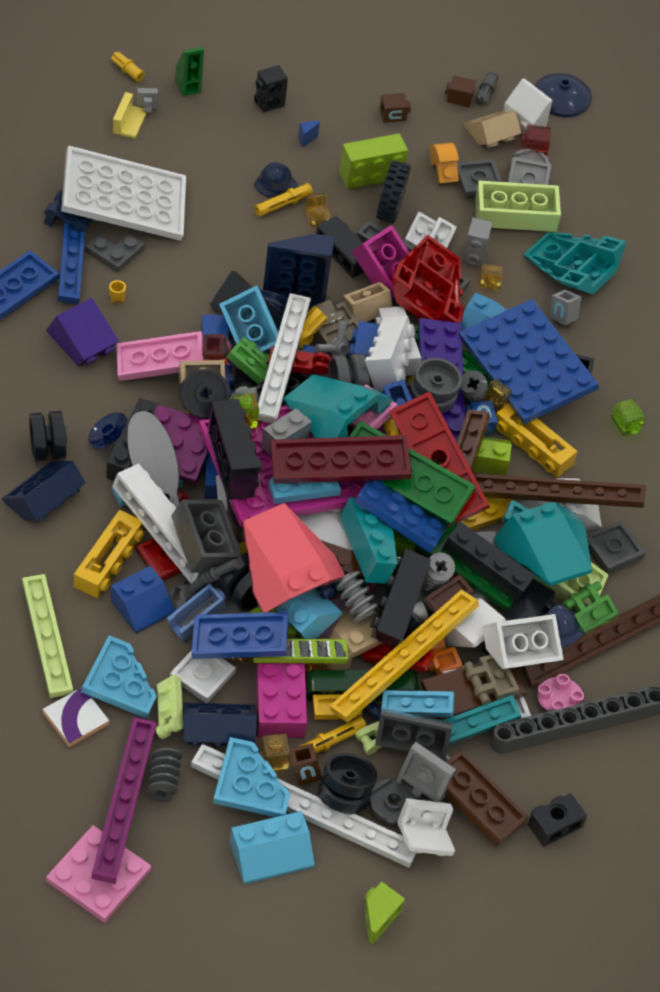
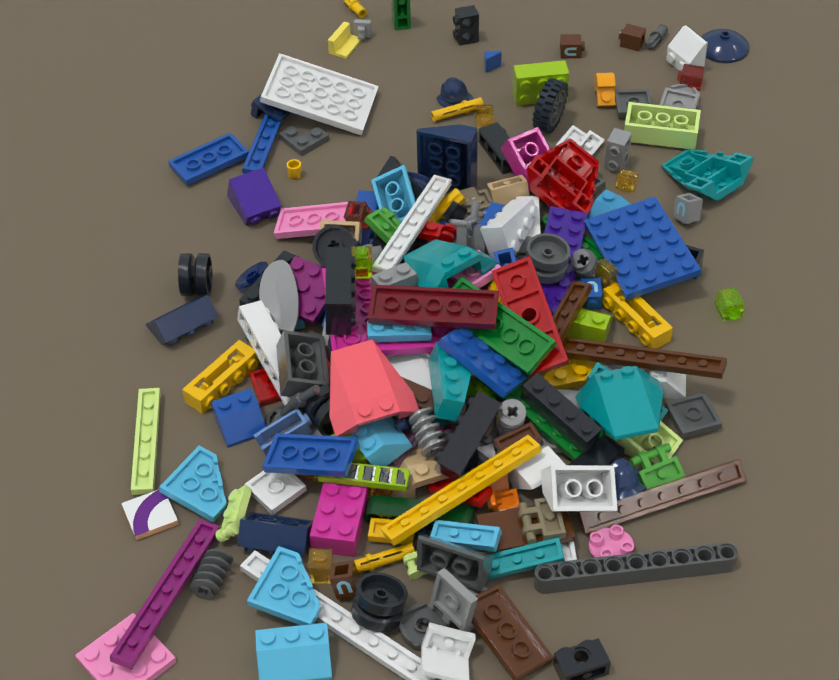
camera: 20 degrees right, 5 degrees down
(318, 335) = (455, 211): none -> black plate
(494, 127) = (655, 65): tan slope -> none

